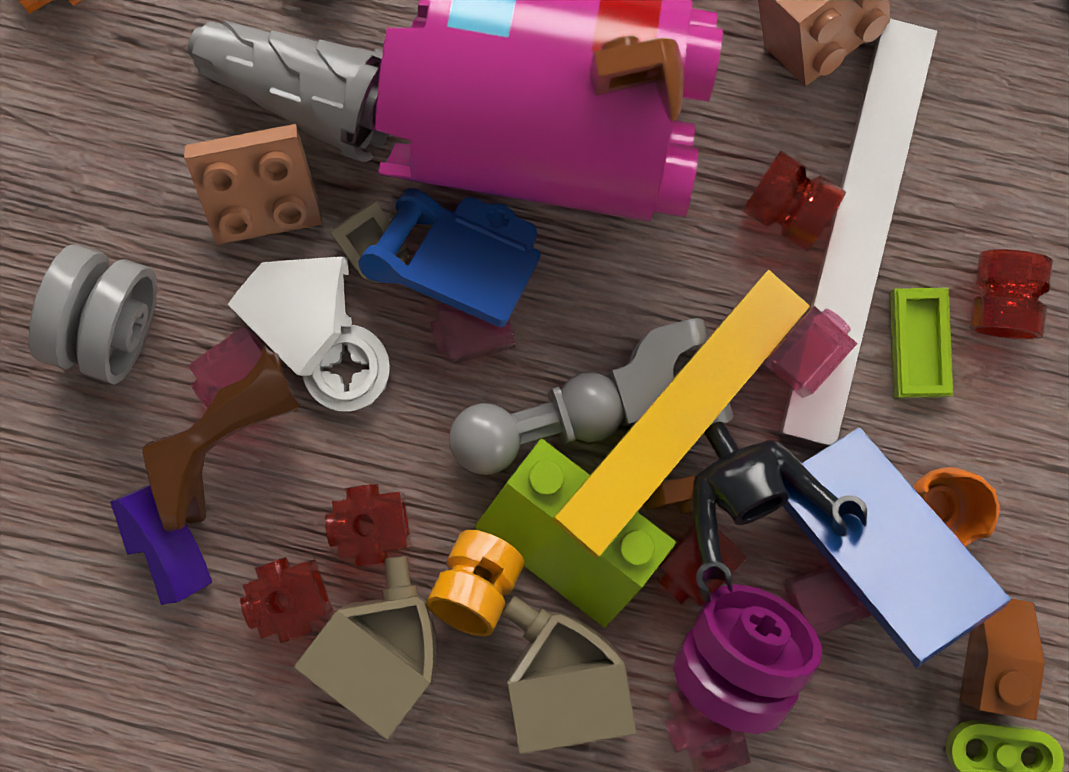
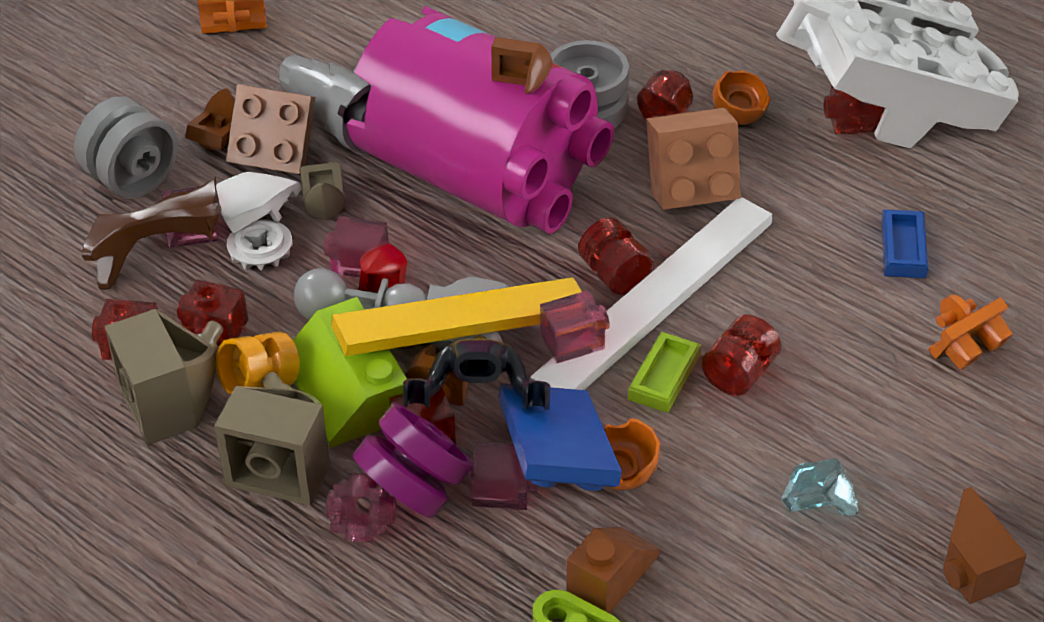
camera: 30 degrees right, 40 degrees down
(167, 196) = (213, 125): none -> dark orange plate
(171, 556) = (73, 281): dark purple slope -> none
(467, 260) = (366, 198): blue piece -> none
(535, 366) = (380, 263): none -> red plate

